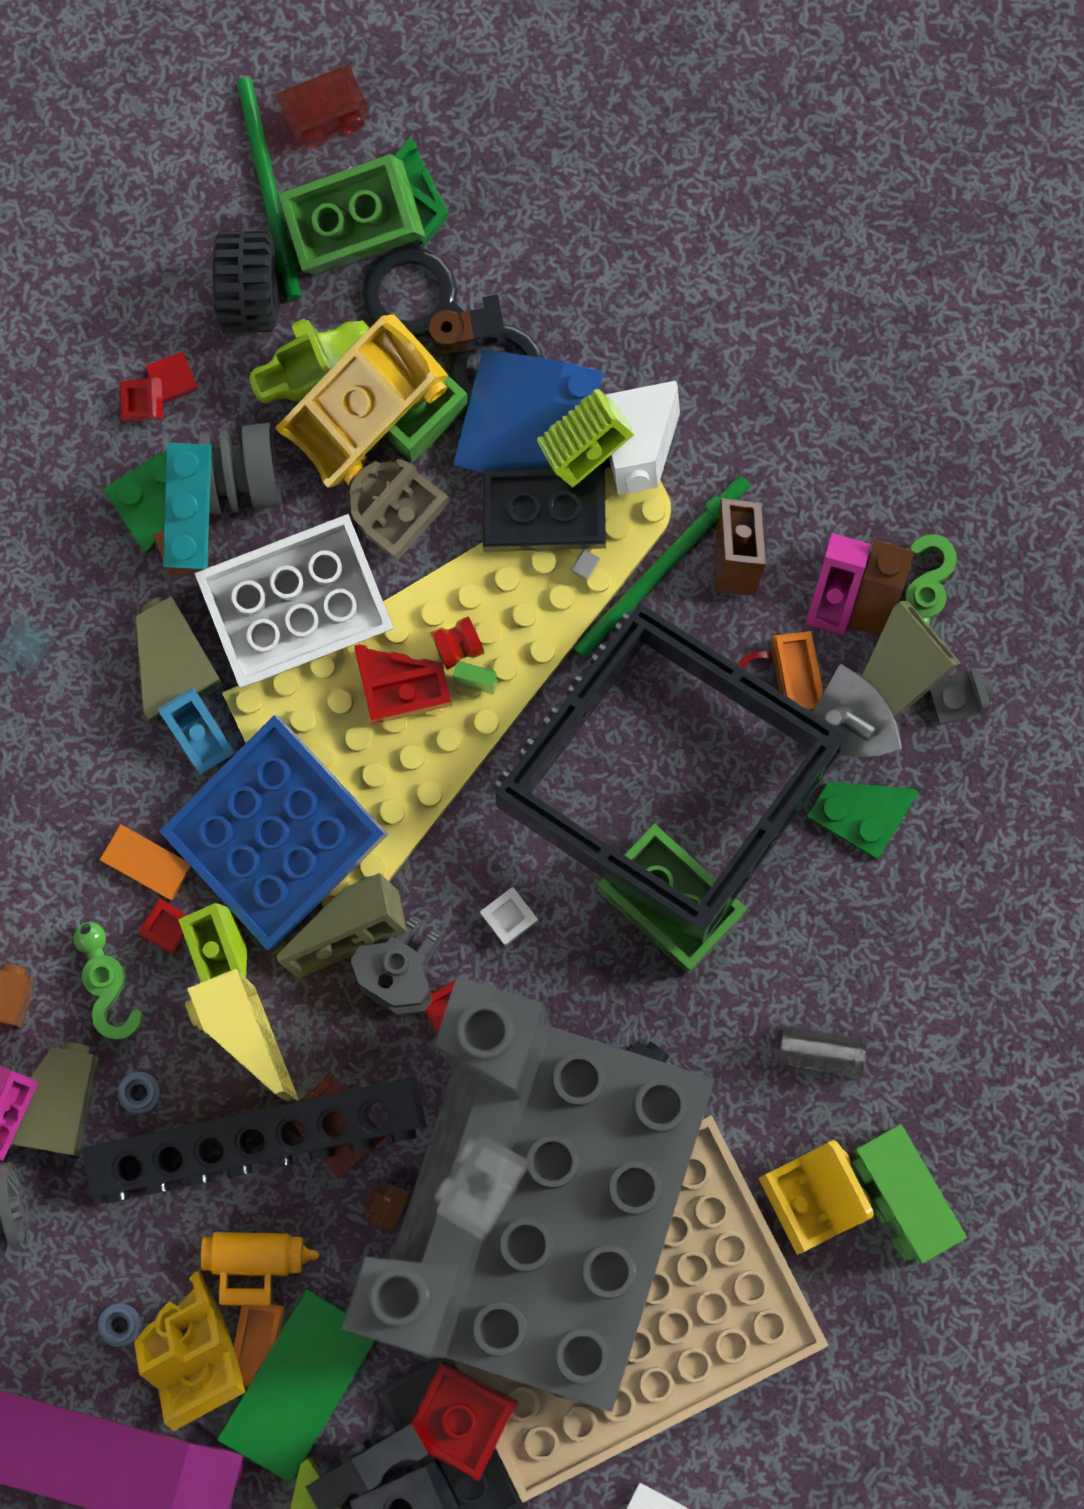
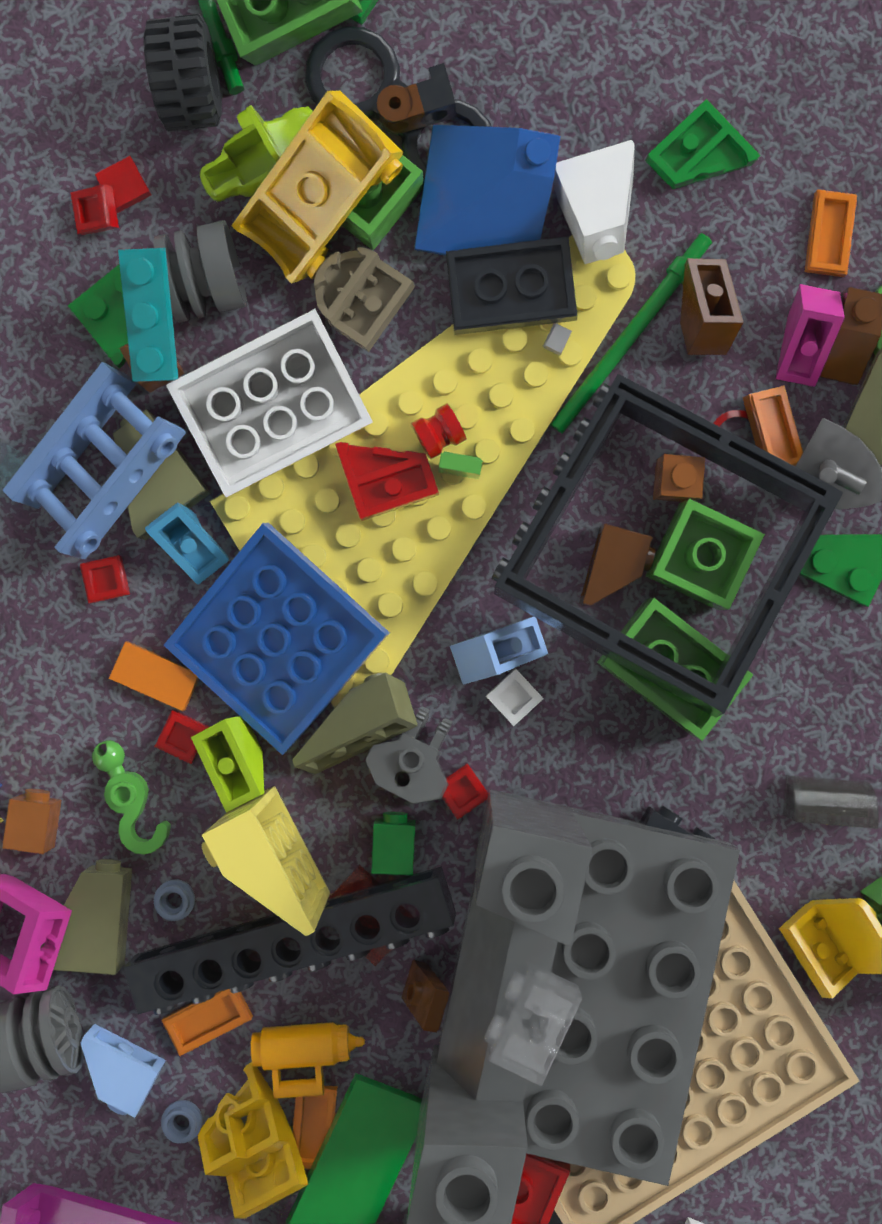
camera: 10 degrees left, 10 degrees up
(64, 1262) = (119, 1070): none -> light blue slope
(90, 617) = (69, 438): none -> medium blue fence
(107, 761) = (104, 579): none -> red tile
(158, 1219) = (205, 1021): none -> orange tile
(370, 1053) = (393, 844): none -> green brick
(497, 866) = (499, 650): none -> light blue slope
(585, 437) = (550, 205): lime brick -> none
(624, 790) = (615, 562): none -> reddish brown slope
(694, 712) = (679, 478): none -> dark orange brick
(711, 789) = (705, 555): none -> bright green brick
(746, 394) = (701, 149): none -> green wing
(871, 486) = (830, 233): none -> orange tile

